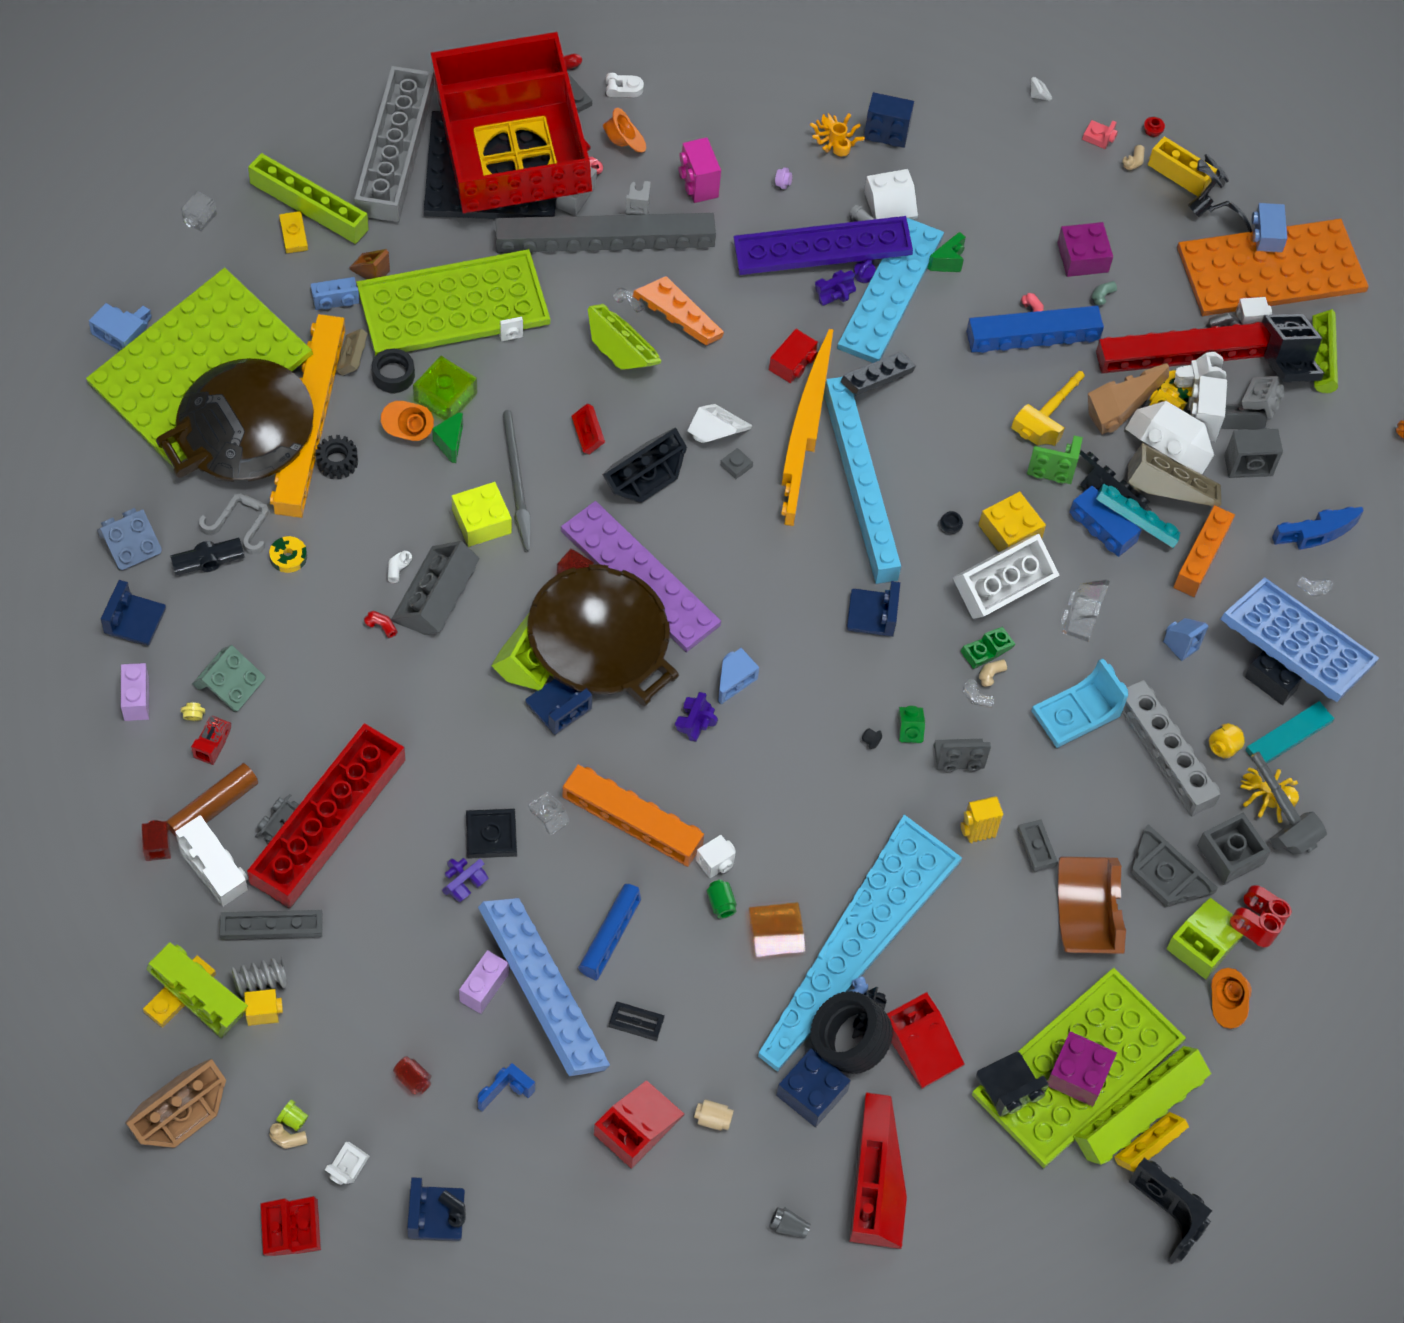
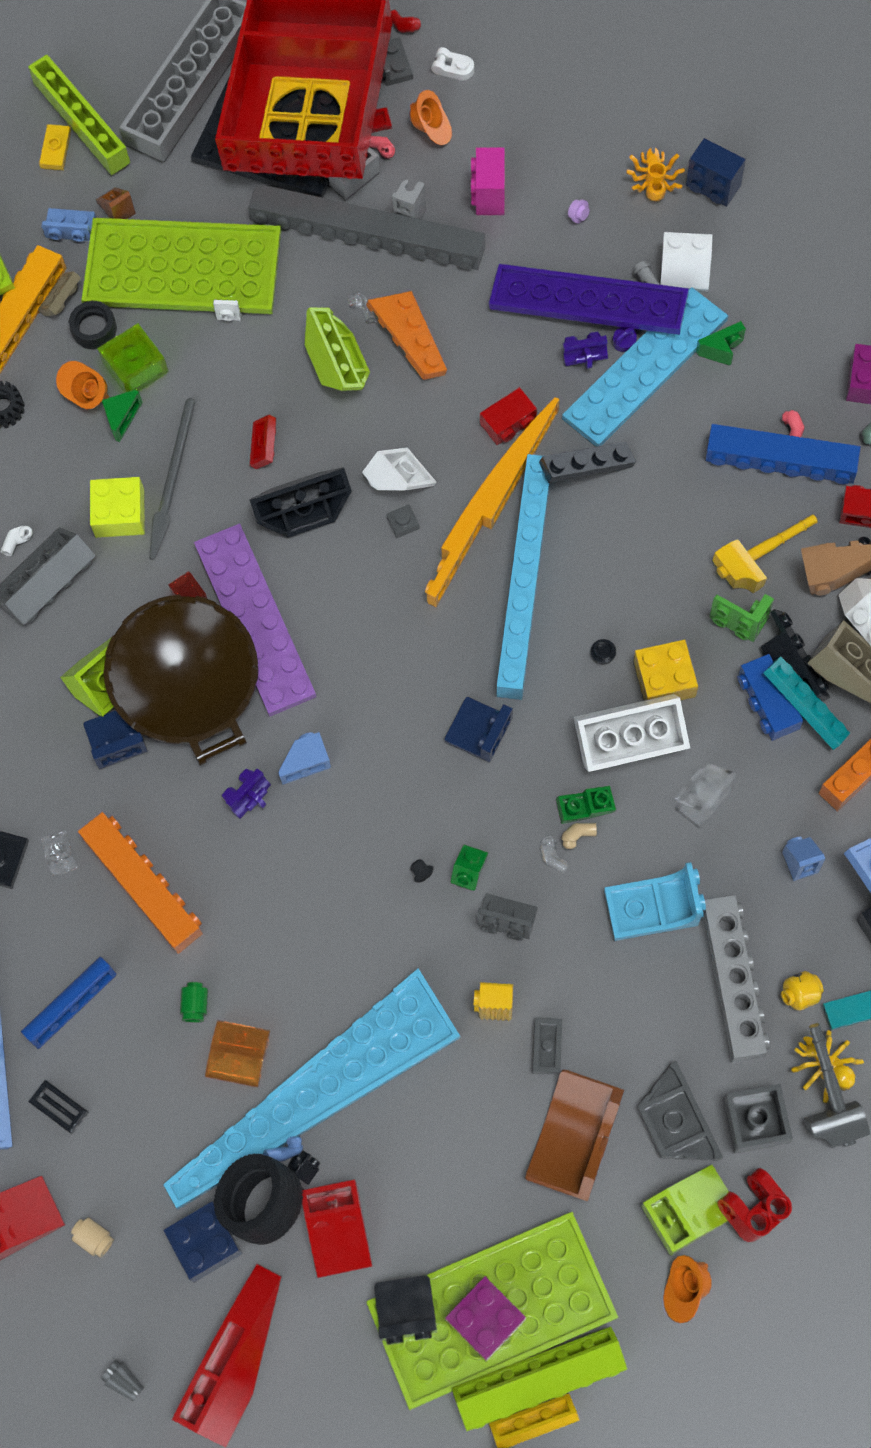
camera: 30 degrees right, 10 degrees up
(716, 856) = (206, 954): white brick -> none

